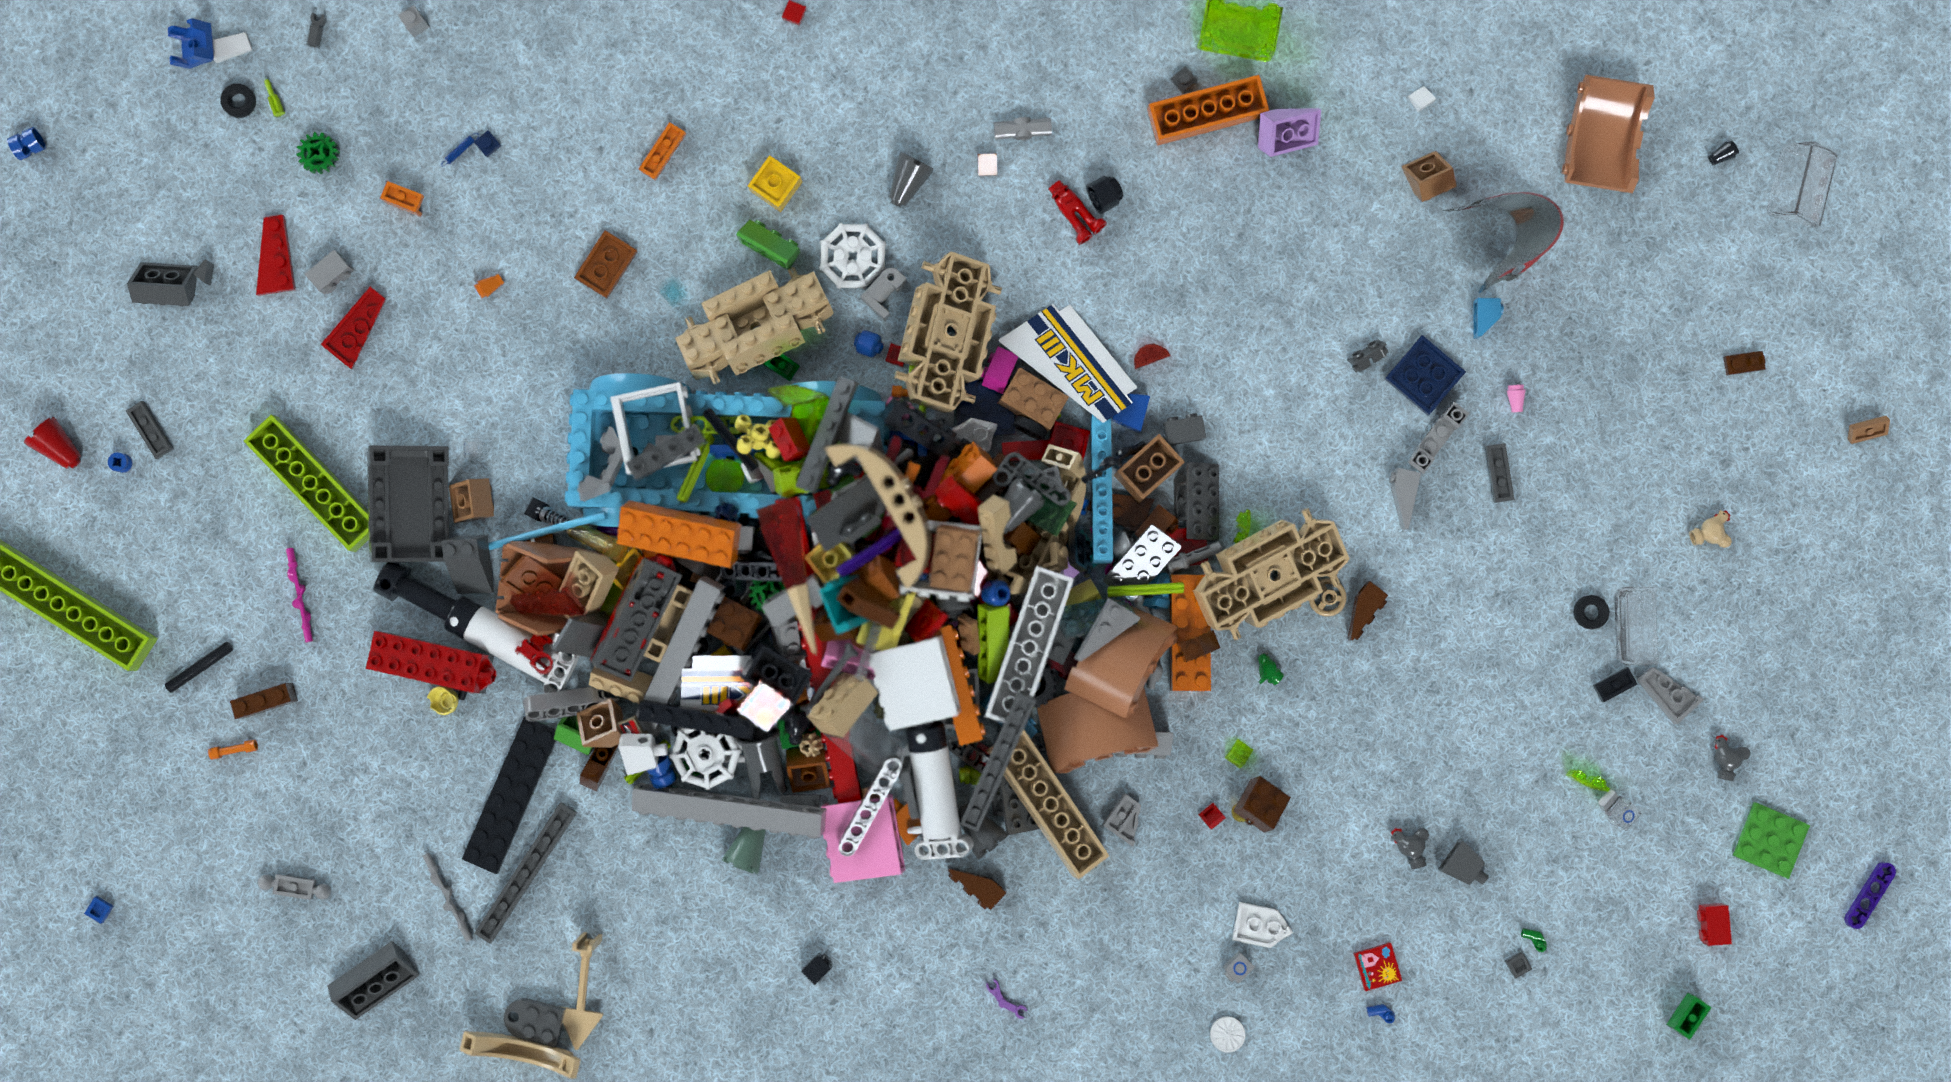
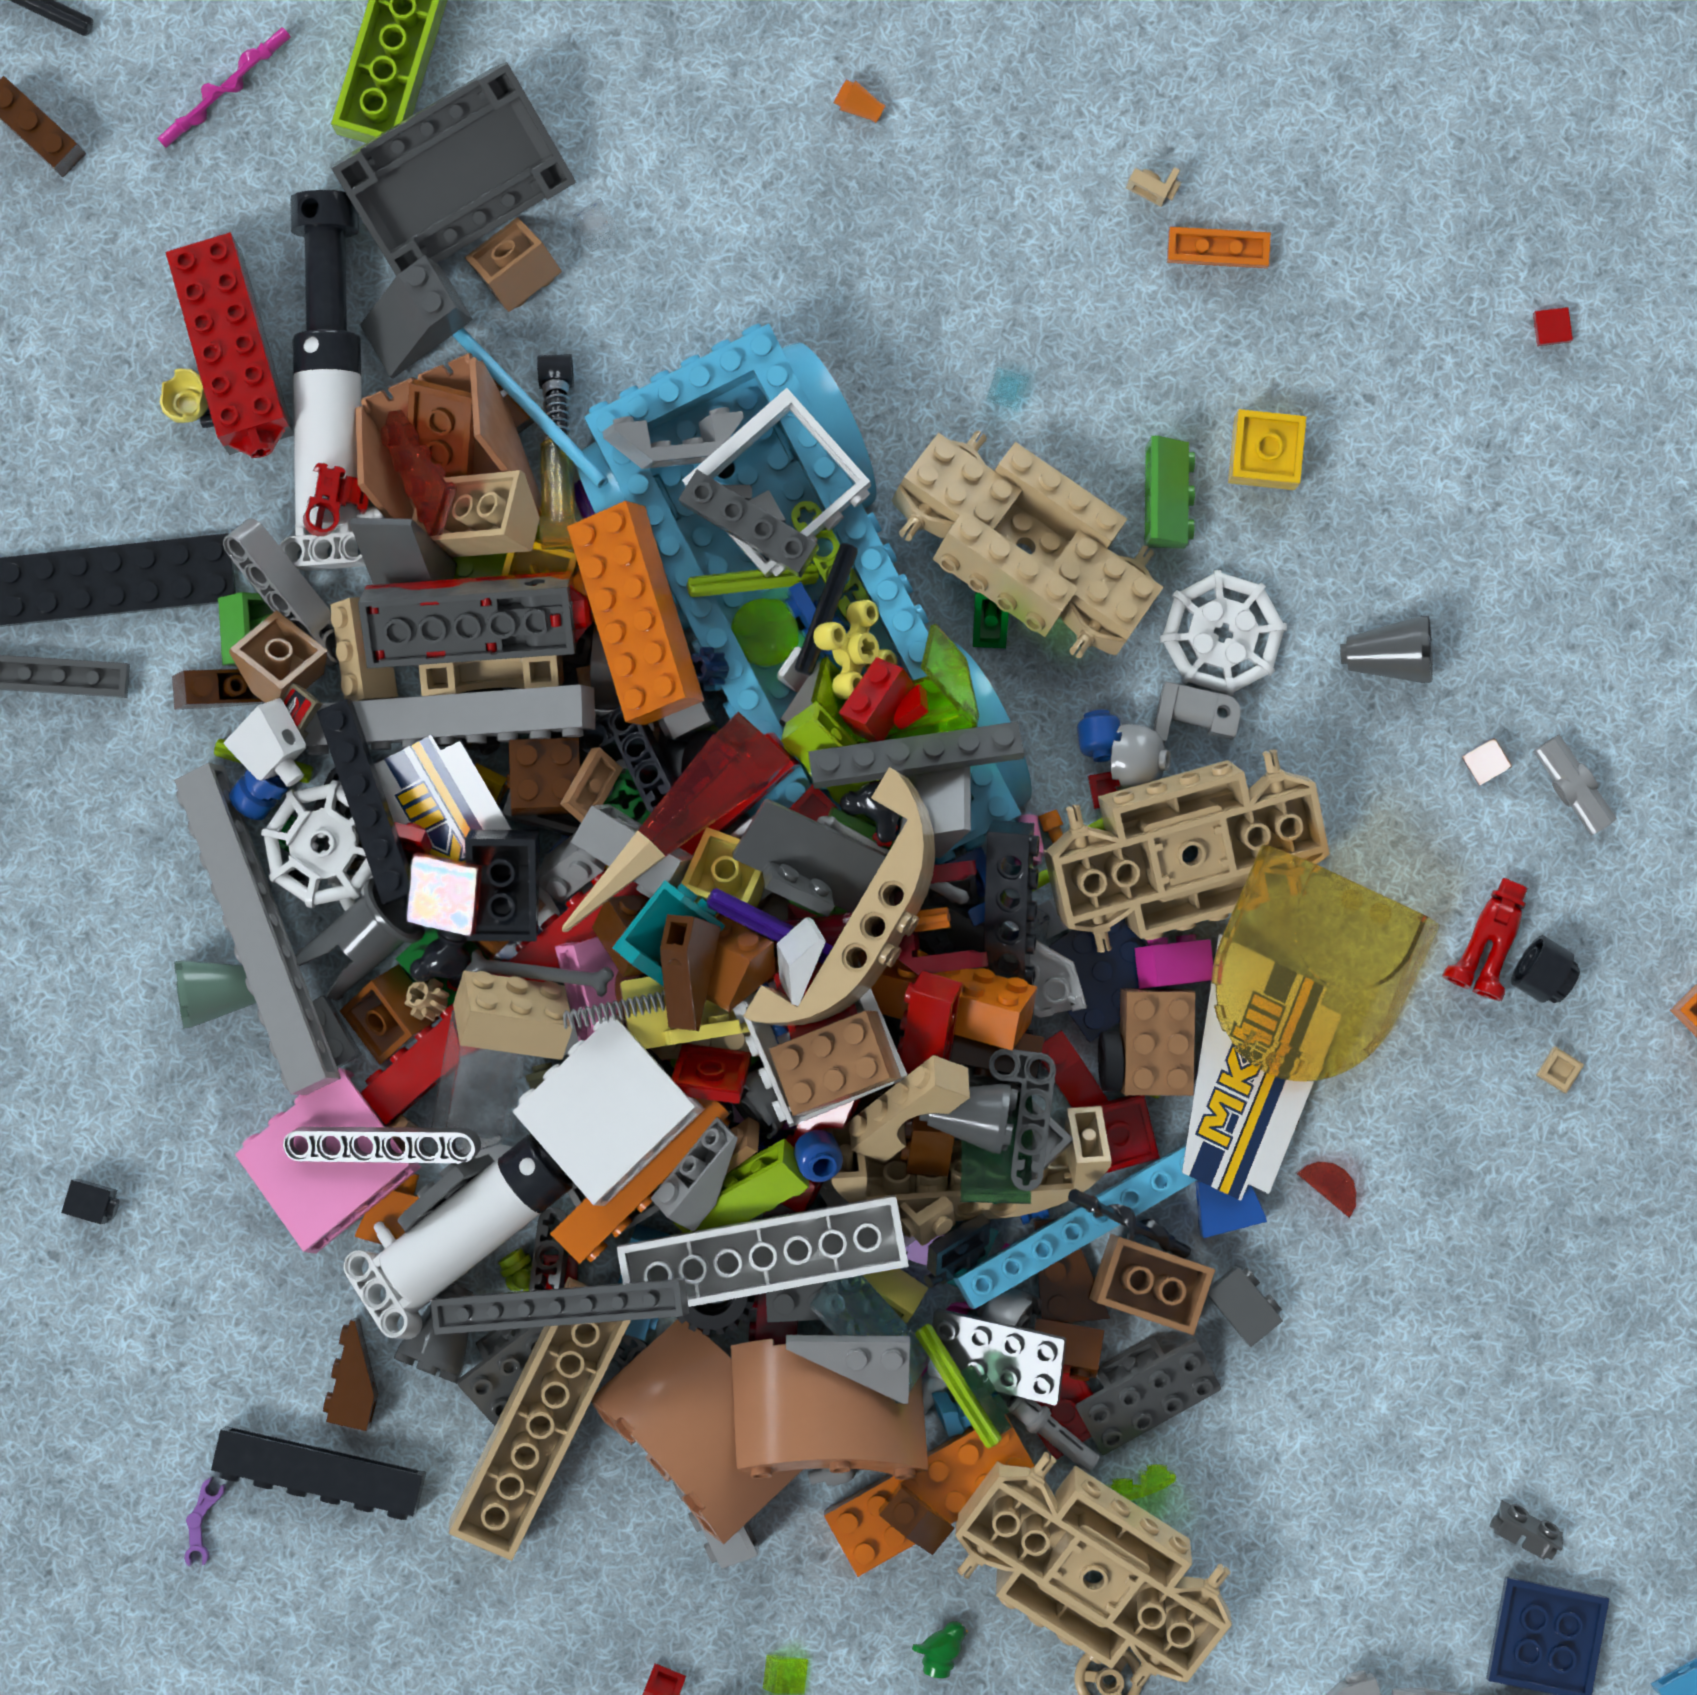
camera: 60 degrees right, 0 degrees up
(605, 264) = (993, 261): dark orange plate -> none
(614, 167) = (1148, 185): none -> tan bracket
(750, 602) = (591, 783): none -> medium nougat plate
(802, 424) = (911, 707): none -> red tile
(889, 330) = (1138, 756): none -> light grey cylinder
(893, 546) = (798, 957): none -> white slope
(973, 657) = (698, 1178): none -> light grey slope
(1012, 928) = (319, 1472): none -> black brick
(1040, 303) = (1314, 968): none -> clear yellow windscreen
(1124, 819) = (582, 1550): light grey wing -> none
(1154, 578) = (993, 1406): none -> clear green plate
(1156, 214) = (1559, 1069): none -> tan tile

